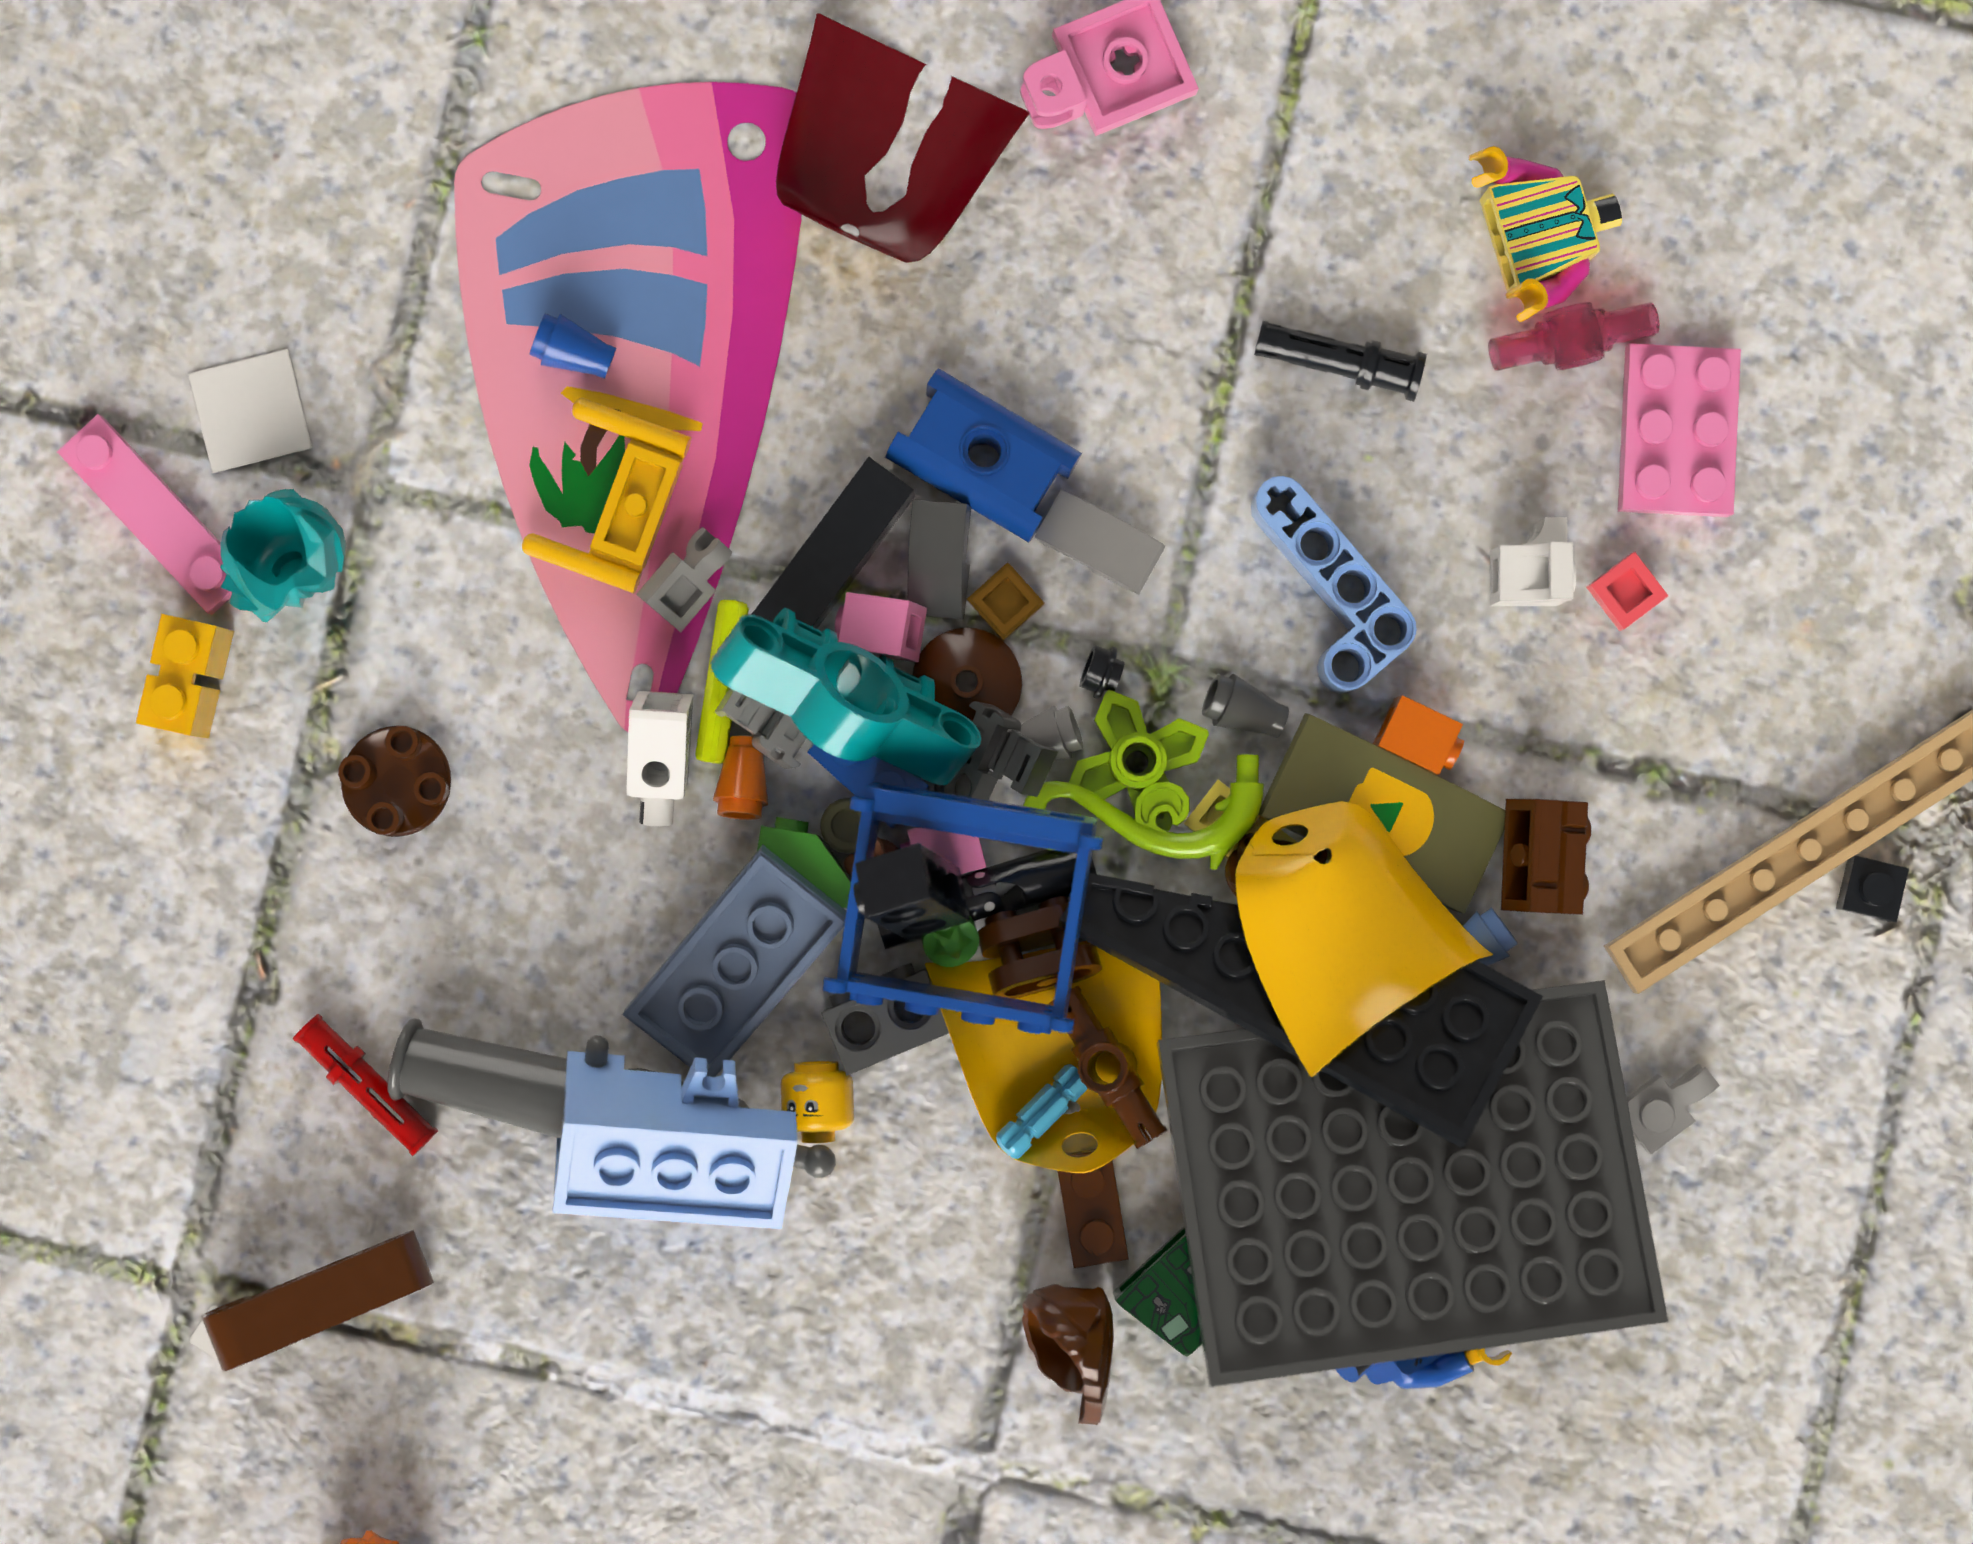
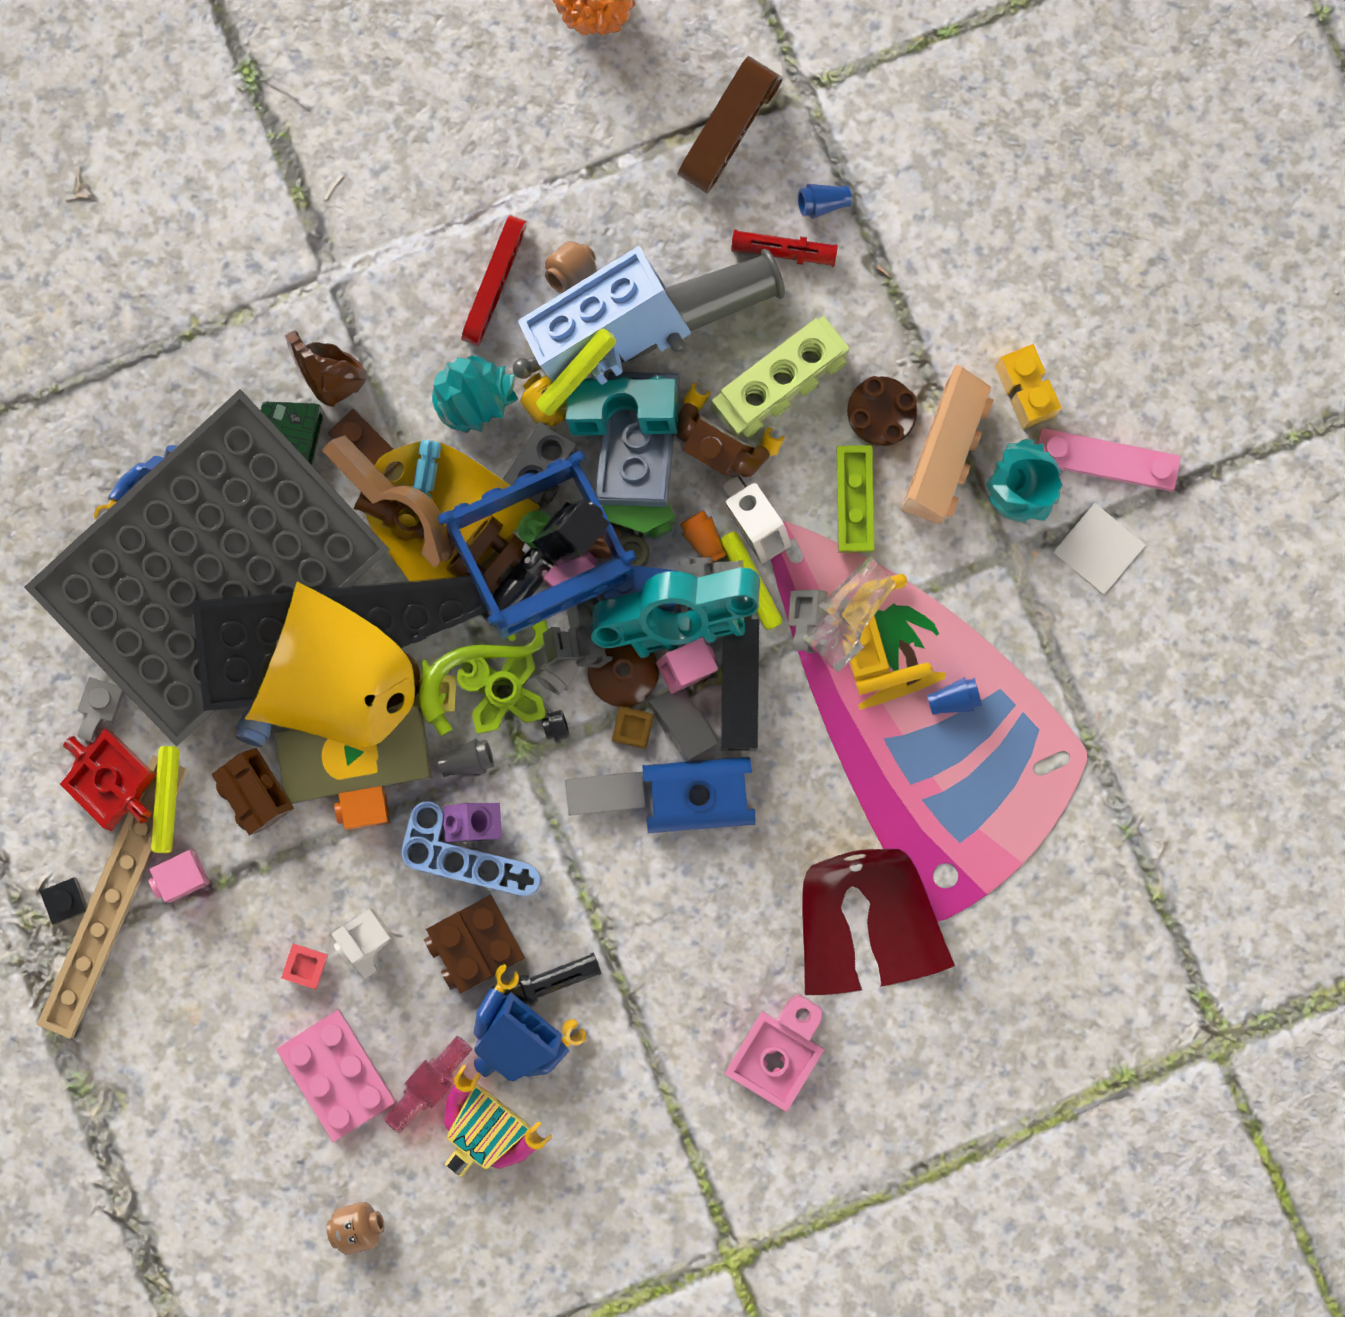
camera: 140 degrees right, 5 degrees down
(269, 1114) = (822, 199): none -> blue cone
(345, 673) = (947, 447): none -> light nougat slope
(407, 929) = (787, 359): none -> yellowish green brick
(513, 691) = (855, 499): none -> lime plate
(623, 542) = (848, 613): none -> clear arch
(641, 884) = (718, 446): none -> reddish brown torso
(661, 1255) = (569, 266): none -> medium nougat head
(681, 998) = (653, 399): none -> teal arch
(754, 1100) = (576, 372): none -> neon yellow axle
(772, 1309) = (494, 280): none -> red beam
(907, 1175) = (472, 393): none -> teal hair
(1117, 1130) = (378, 487): none -> medium nougat piece
(1294, 619) = (472, 822): none -> medium lavender brick
(1397, 469) = (473, 944): none -> reddish brown plate
(1427, 311) = (516, 1038): none -> blue torso
(1663, 922) = (165, 799): none -> neon yellow axle
(1710, 815) = (178, 876): none -> bright pink brick
(1718, 1001) = (107, 779): none -> red plate
(1785, 223) = (355, 1228): none -> medium nougat head

